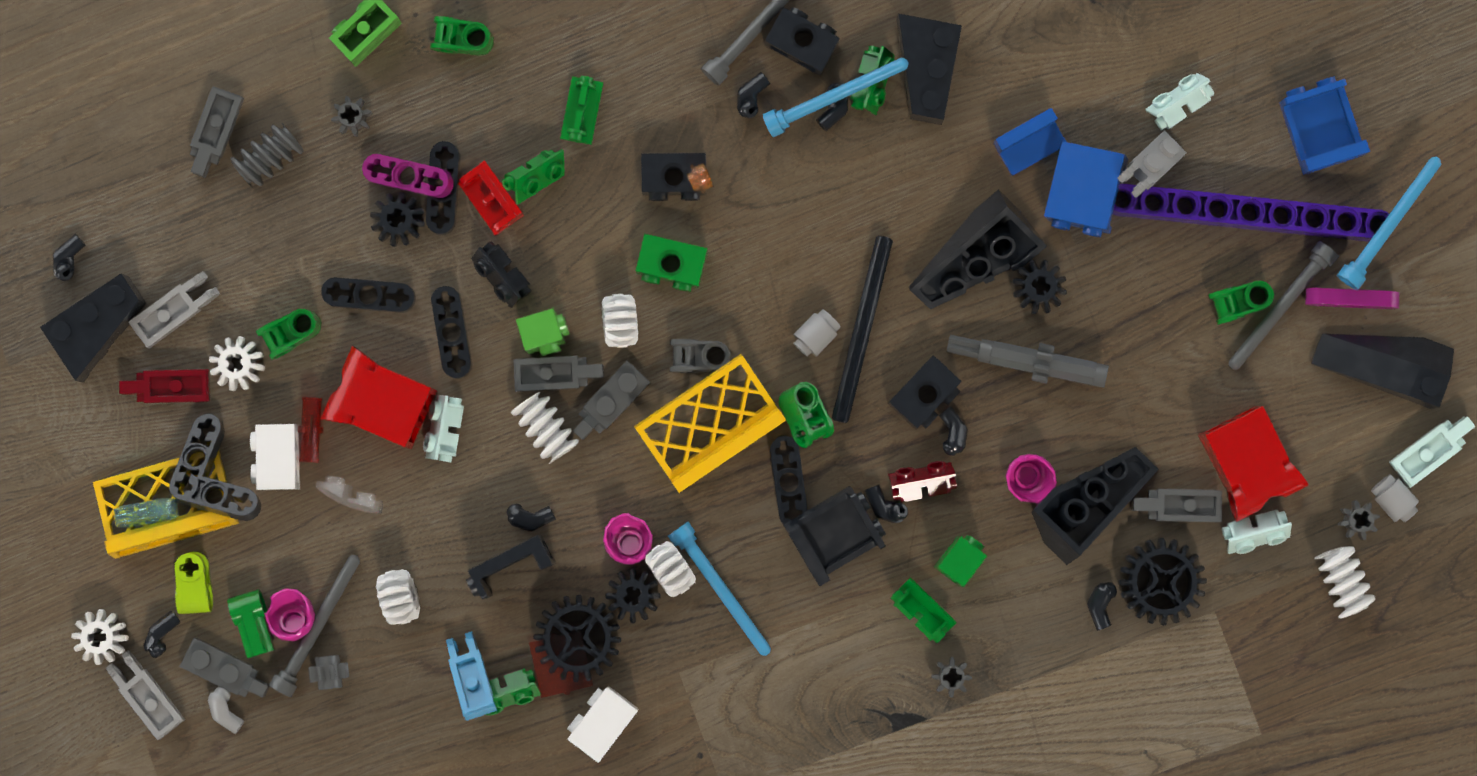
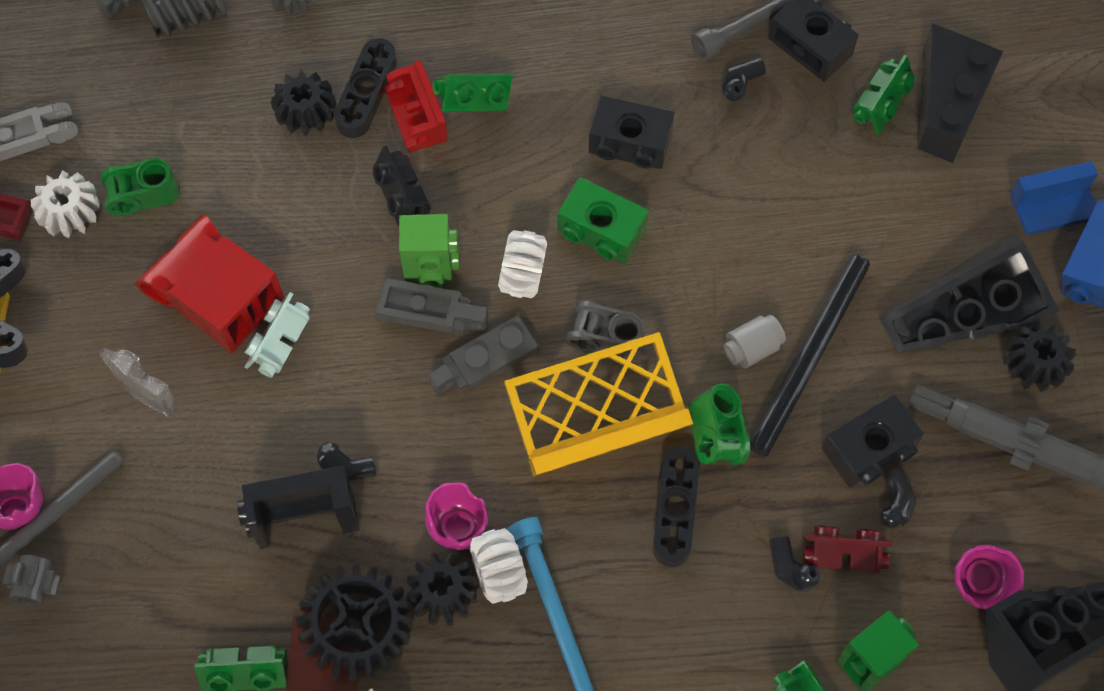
camera: 15 degrees right, 20 degrees down
(276, 457) = (68, 312): white brick -> none
(308, 452) = (120, 297): clear red pin -> none
(345, 284) = (233, 160): black beam -> none
(389, 162) = (340, 72): magenta beam -> none
(398, 597) = (149, 509): white gear -> none
(439, 325) = (330, 251): black beam -> none
(470, 679) = (201, 633): dark azure hinge -> none
(544, 427) = (394, 360): white piece -> none
(581, 110) = (546, 46): green hinge -> none
(700, 178) = (661, 130): clear orange plate -> none
(779, 120) = (767, 107): dark azure piece -> none
(835, 111) = (836, 111): black arm -> none
(835, 533) = (721, 579): black panel -> none

